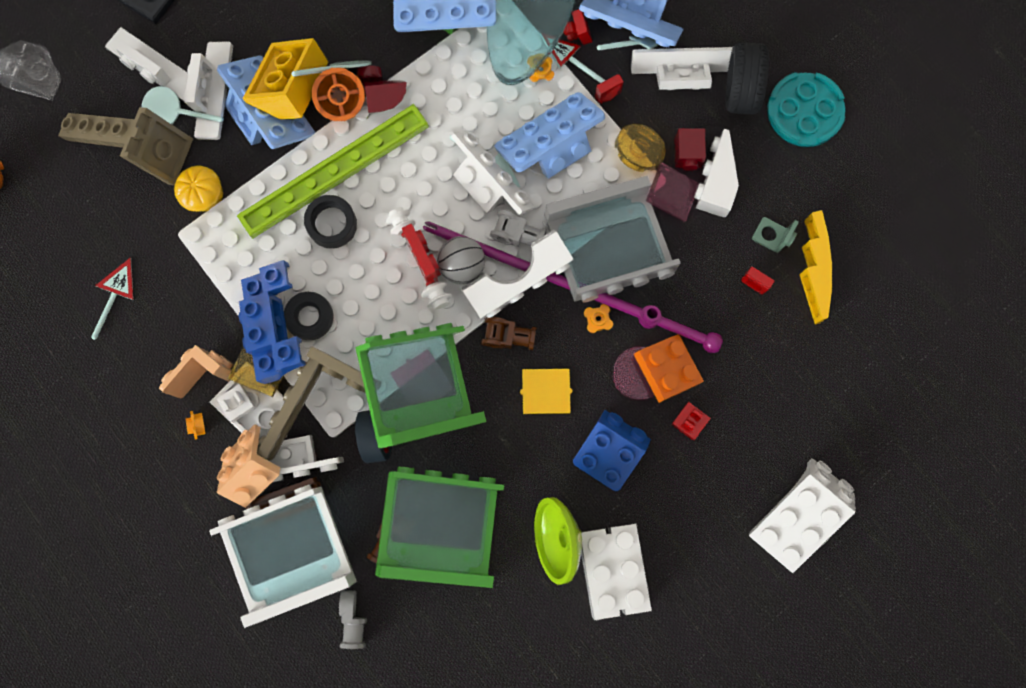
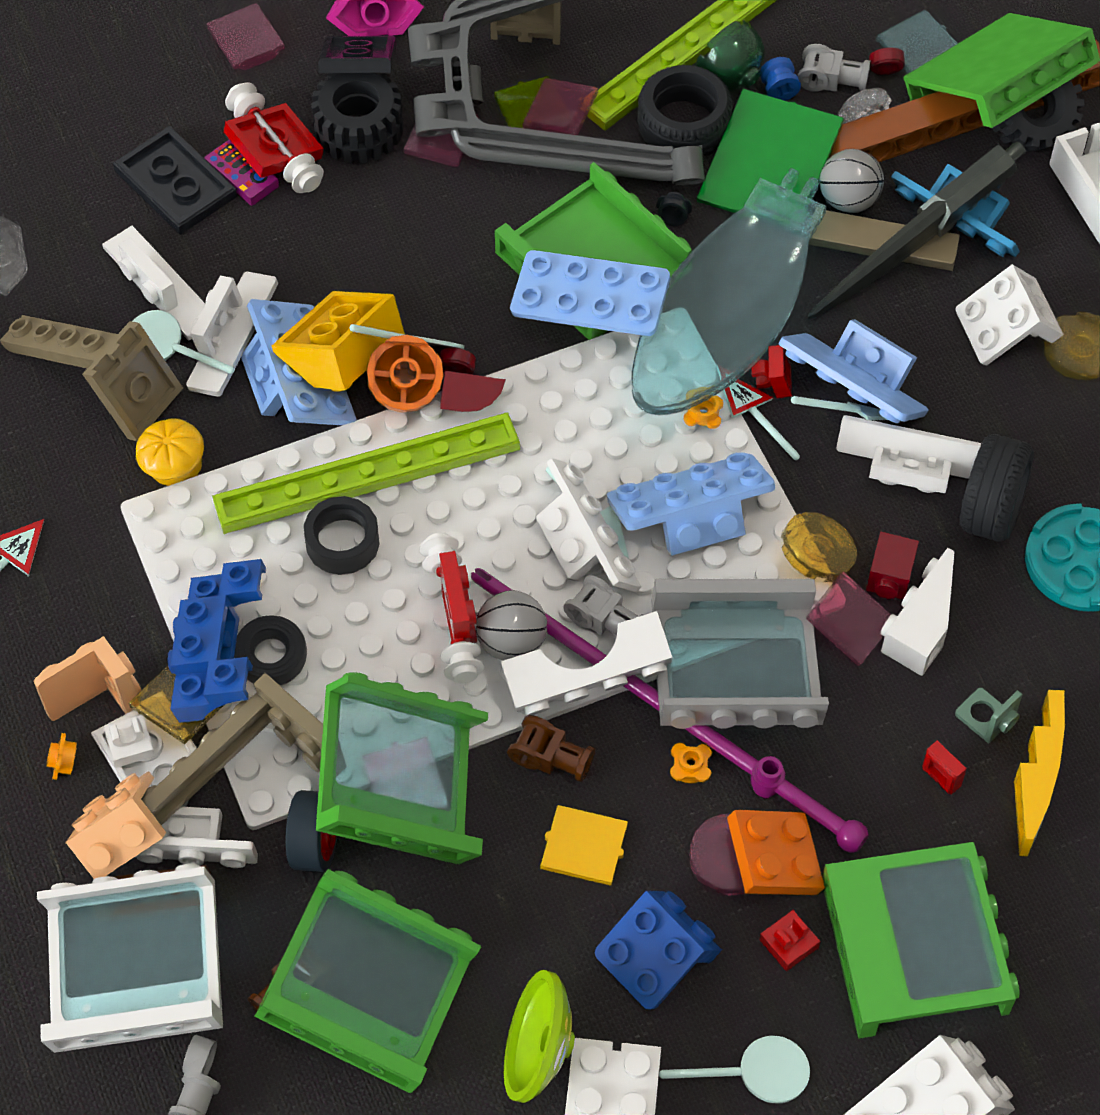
camera: 15 degrees right, 20 degrees down
(609, 89) = (795, 460): red tile -> none
(701, 508) = (770, 1069): none -> light aqua piece
(771, 401) = (918, 935): none -> panel

